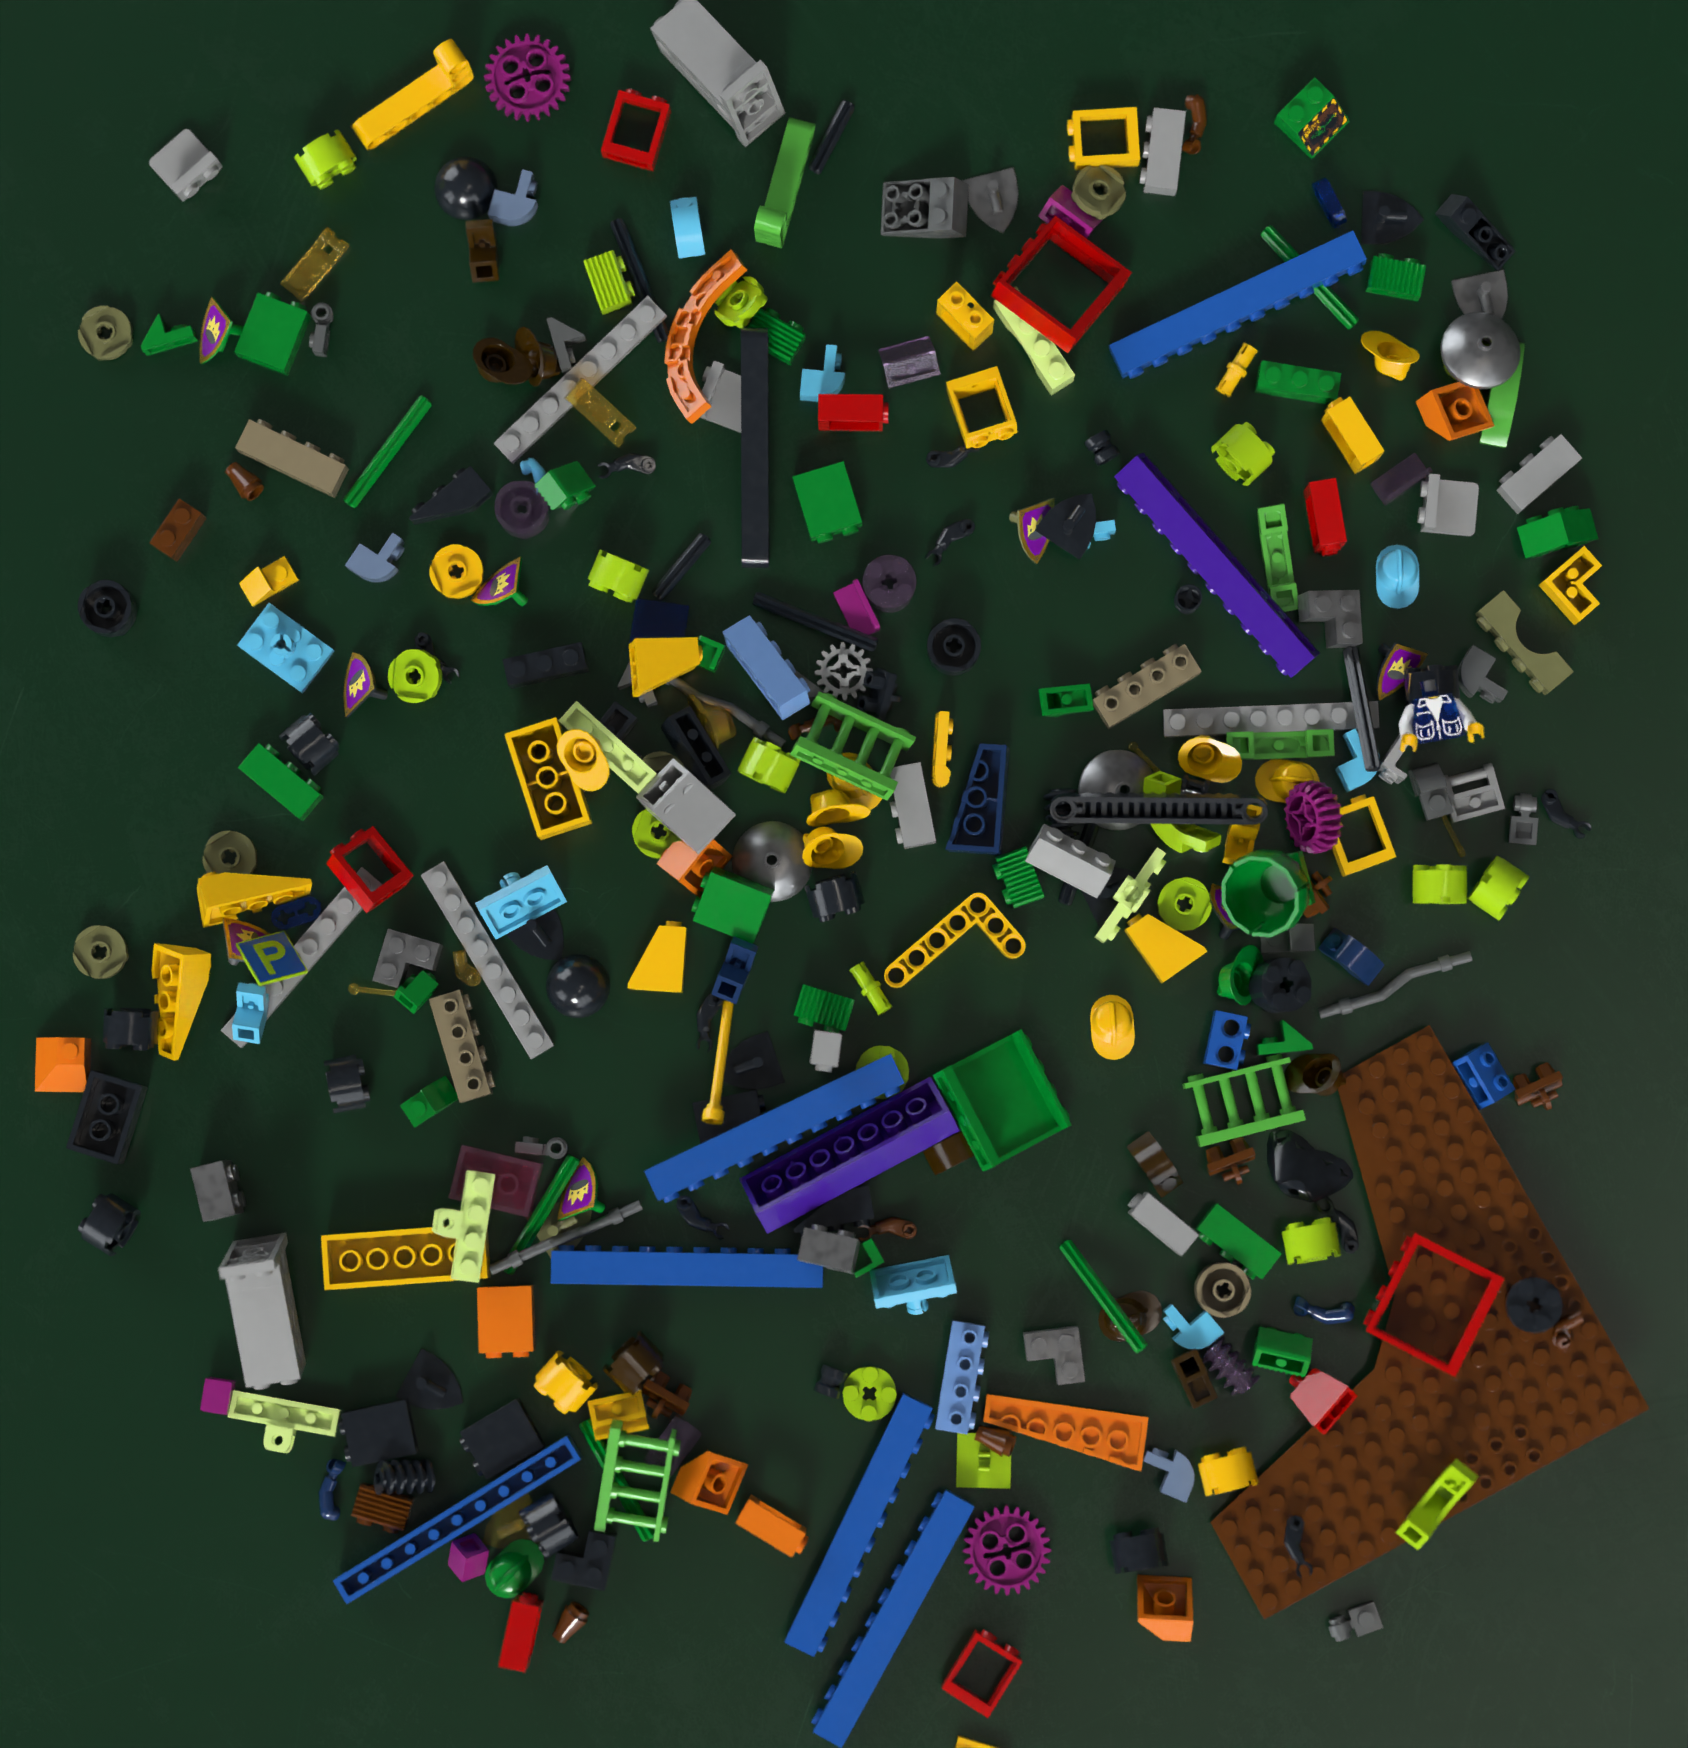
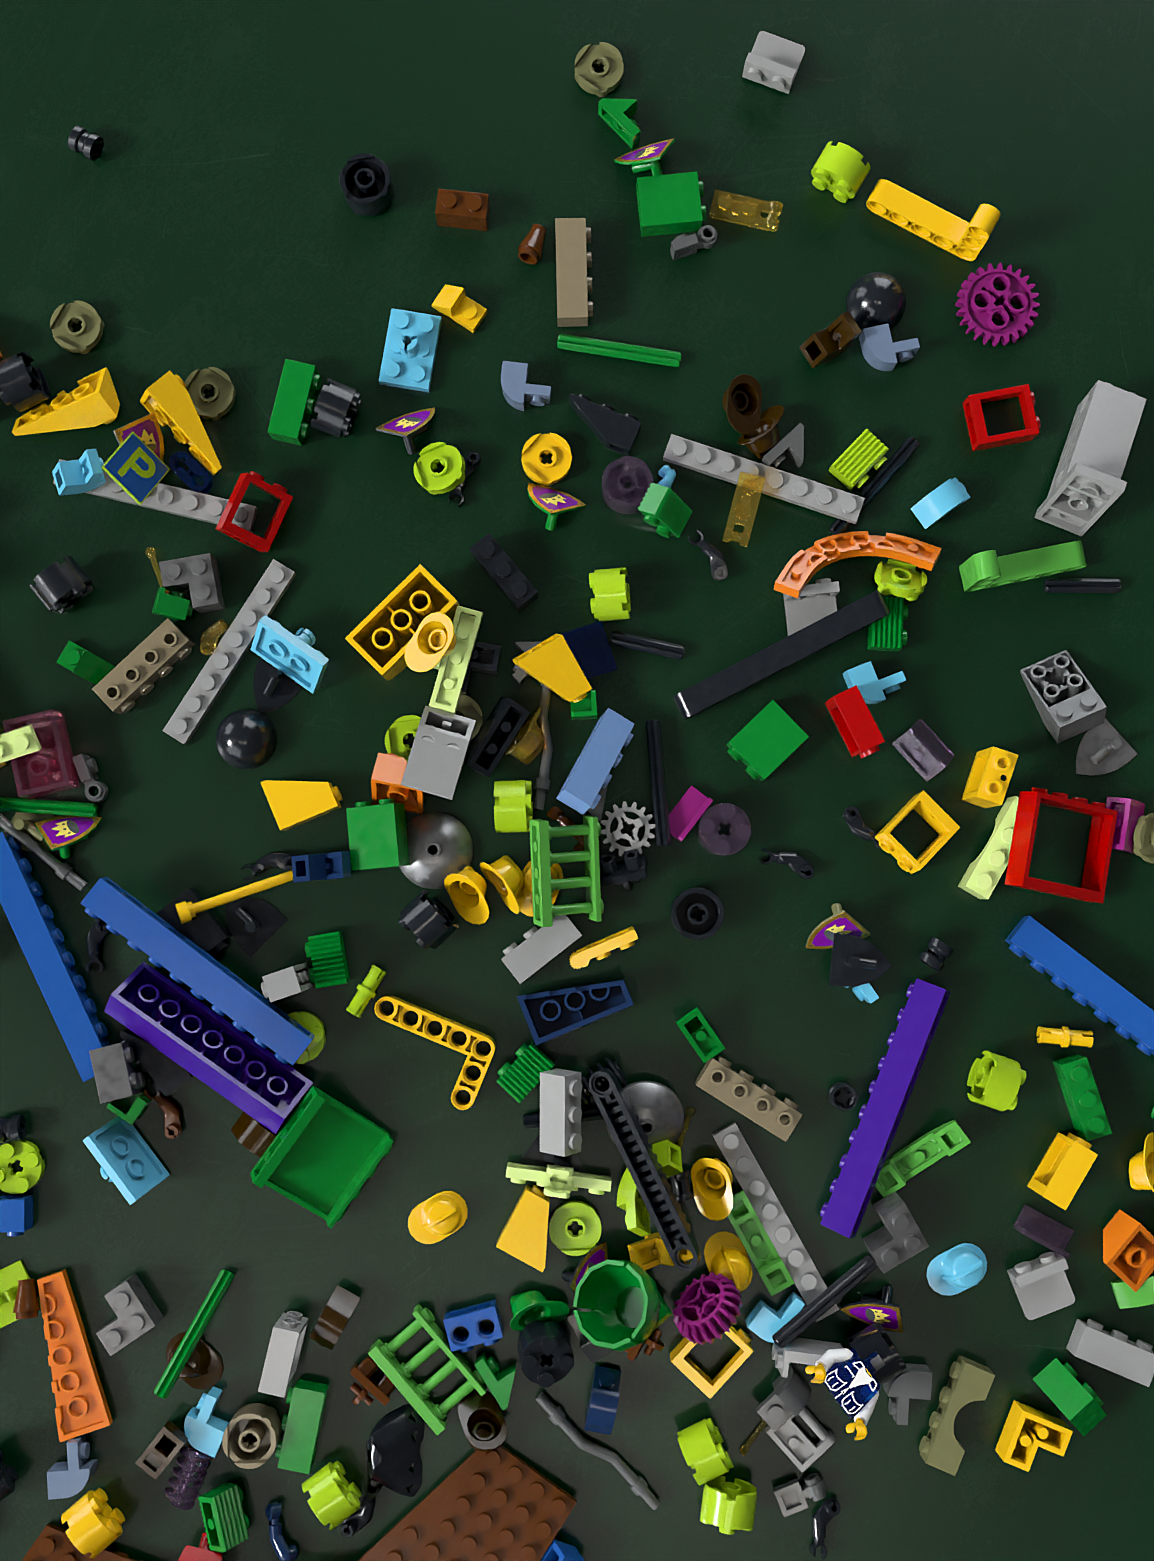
camera: 55 degrees right, 0 degrees up
(960, 1377) = (66, 1240): medium blue brick -> none
(1325, 516) = (977, 1183): red window -> none

